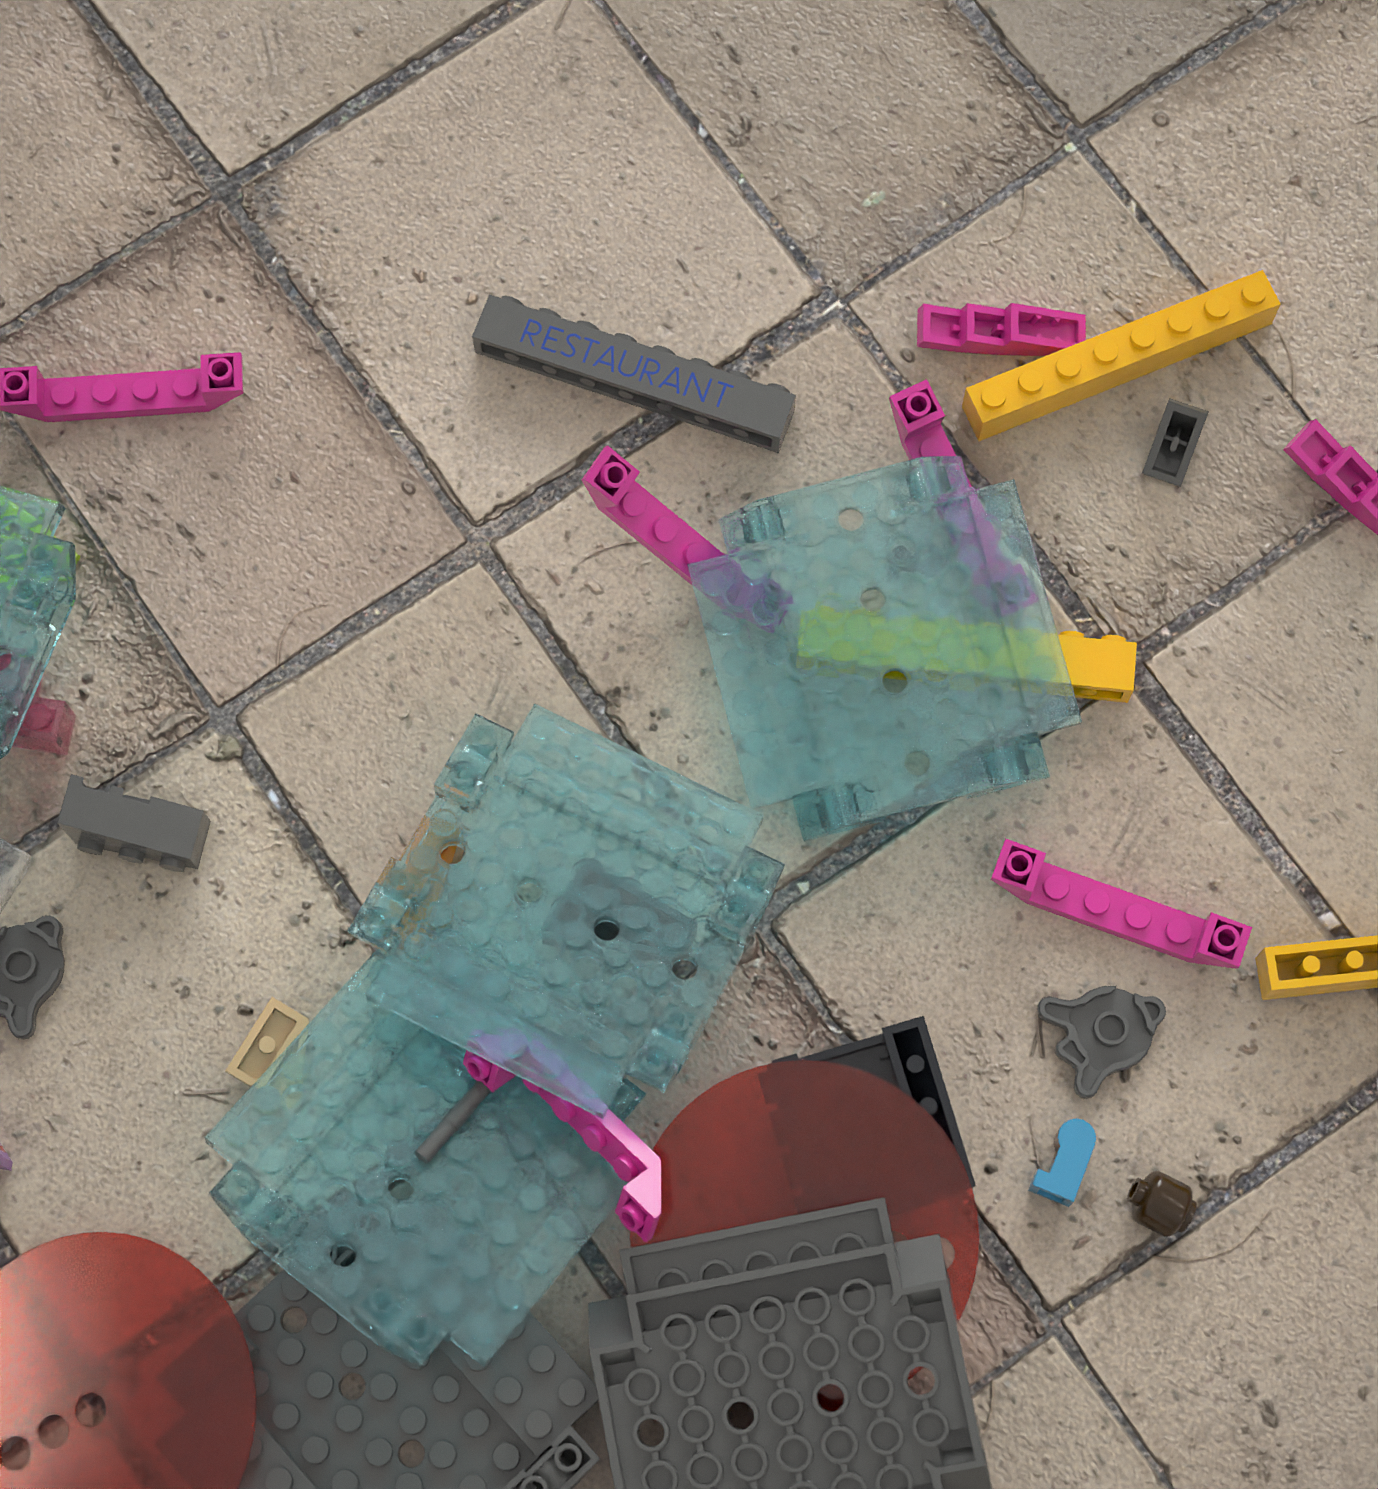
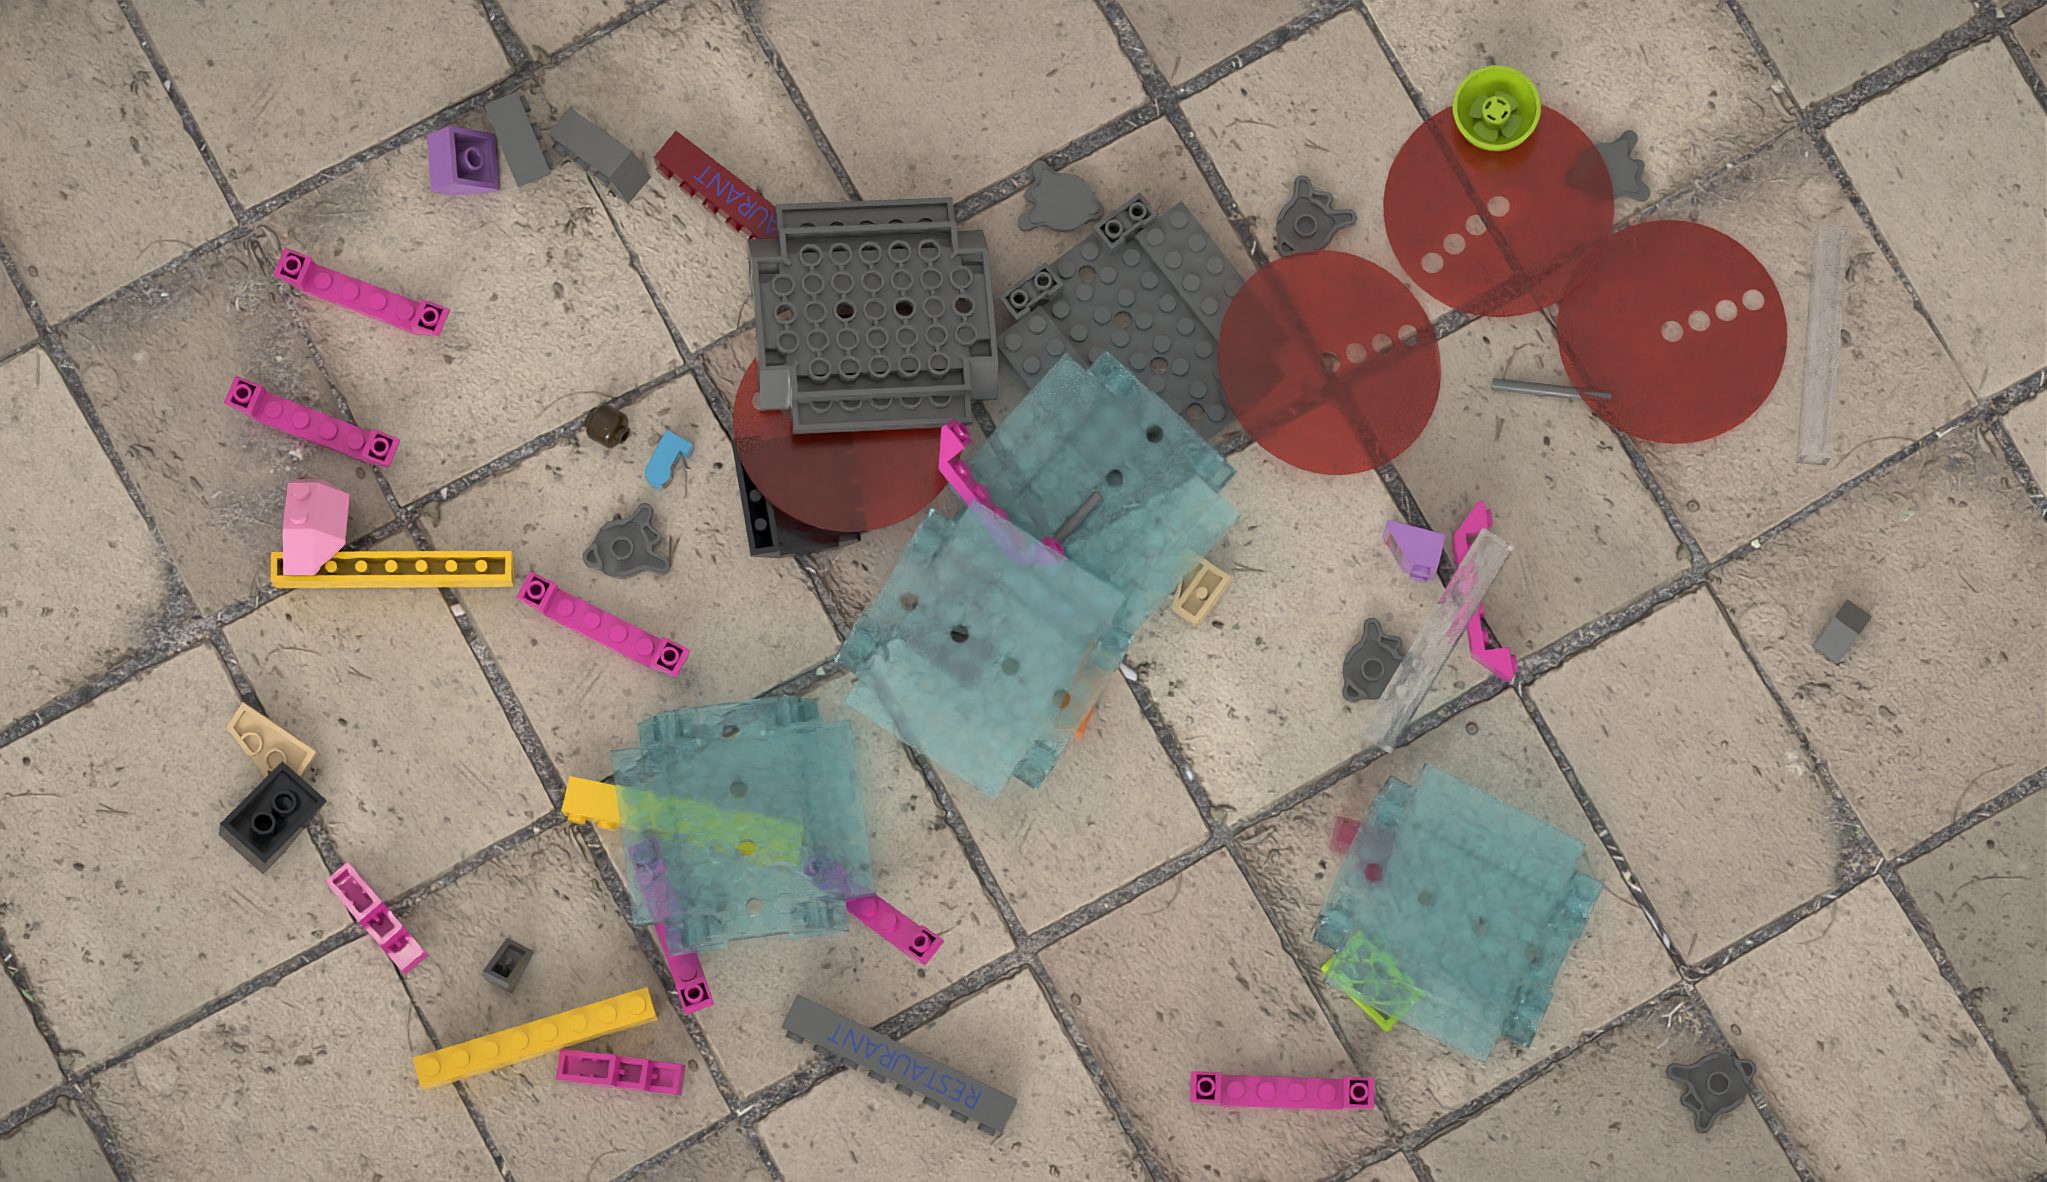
camera: 175 degrees left, 5 degrees up
(133, 826) = (1285, 754): dark grey wedge -> none

